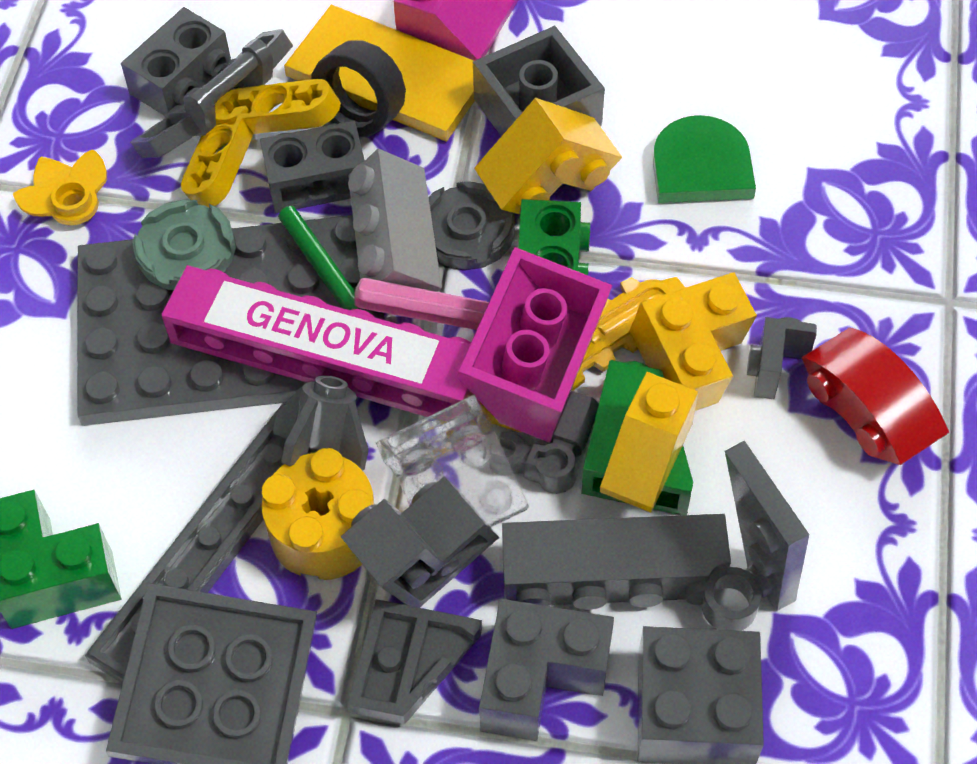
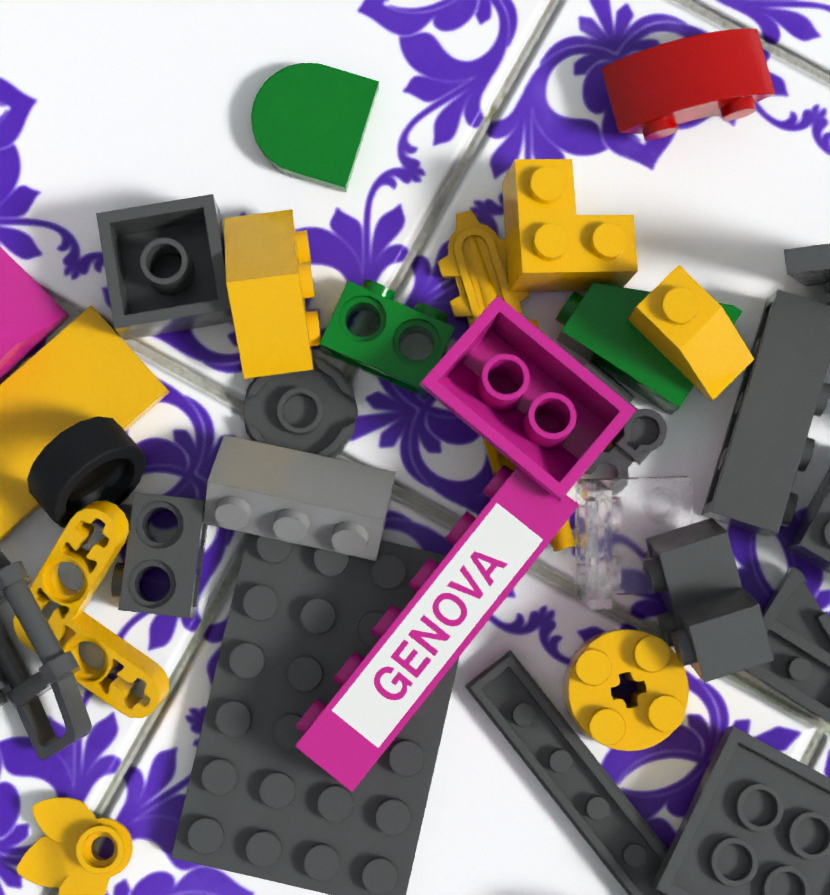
camera: 75 degrees left, 25 degrees up
(181, 236) = (231, 737): sand green tile -> none
(318, 258) = (318, 590): green bar -> none
(322, 417) = (534, 655): dark grey brick -> none
(419, 303) = (413, 494): bright pink axle -> none
(778, 339) = (600, 165): dark grey bracket -> none

